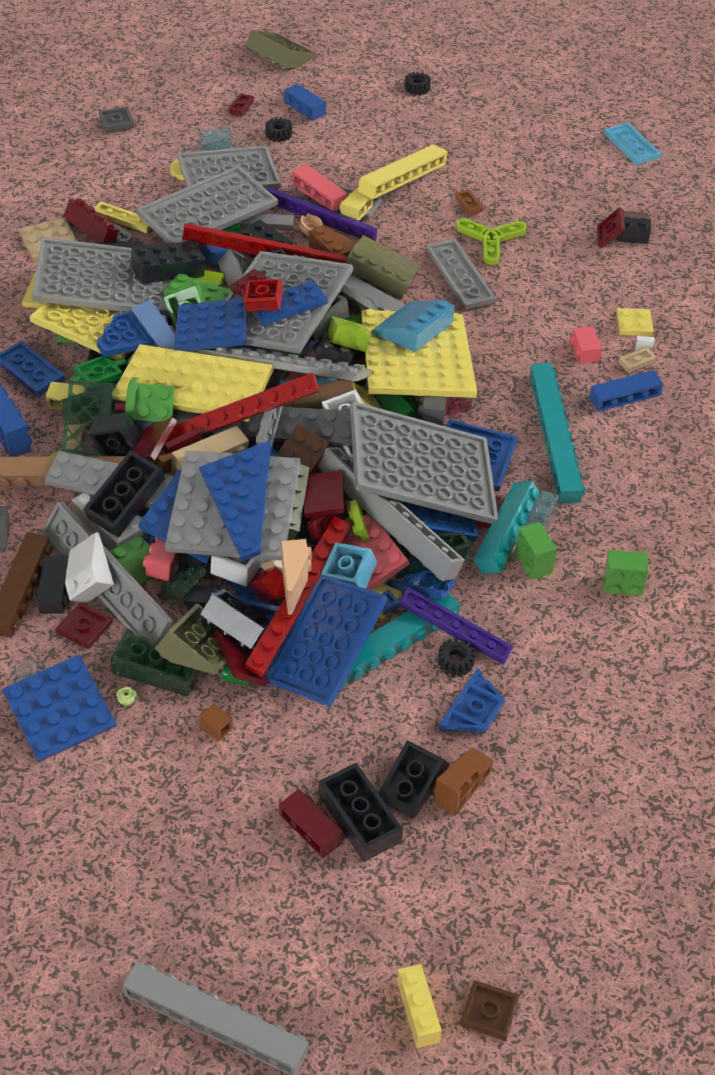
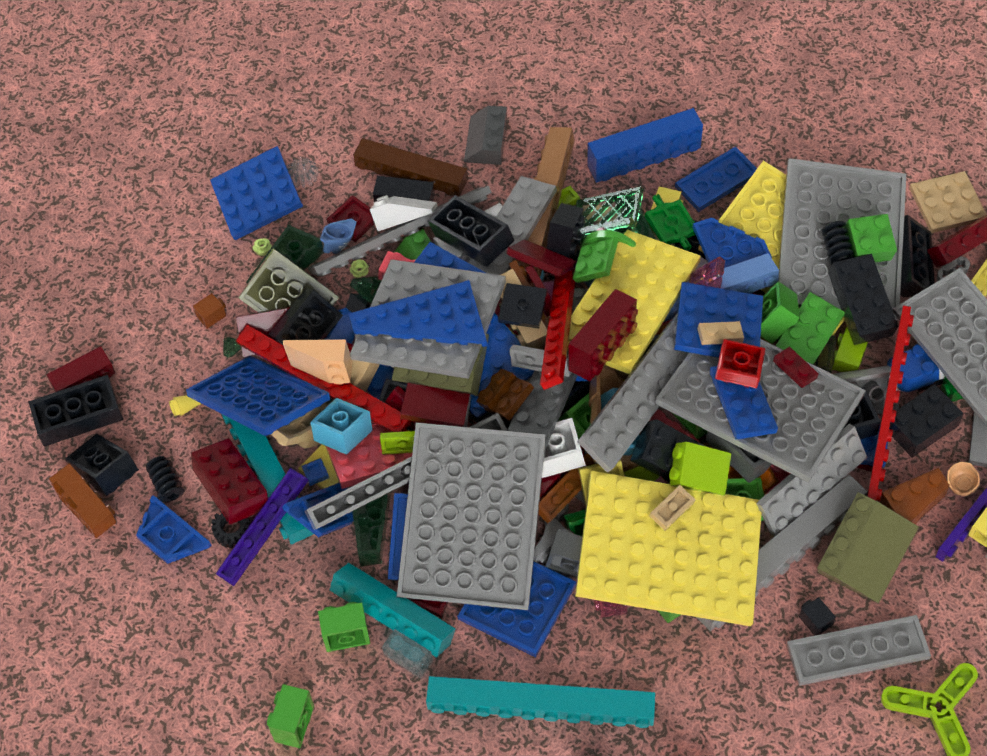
camera: 105 degrees right, 10 degrees up
(112, 253) = (872, 236): none -> bright green brick
(114, 622) = (337, 235): none -> medium blue hat
(118, 269) = (836, 241): none -> black piece
(165, 331) = (709, 274): none -> clear pink slope
(213, 438) = (522, 305): none -> black plate
(230, 313) = (718, 331): none -> tan plate
(249, 367) = (602, 335): none -> dark red brick
(255, 696) = (230, 347): none -> clear green tile
(332, 724) = (182, 405): none -> light yellow cone
(390, 341) = (672, 507): none -> tan plate
(415, 656) = (229, 480): none -> dark red brick
(416, 323) = (713, 546): dark azure slope -> none
(421, 714) = (164, 479): none -> black piece
(441, 290) = (816, 616): none -> black brick

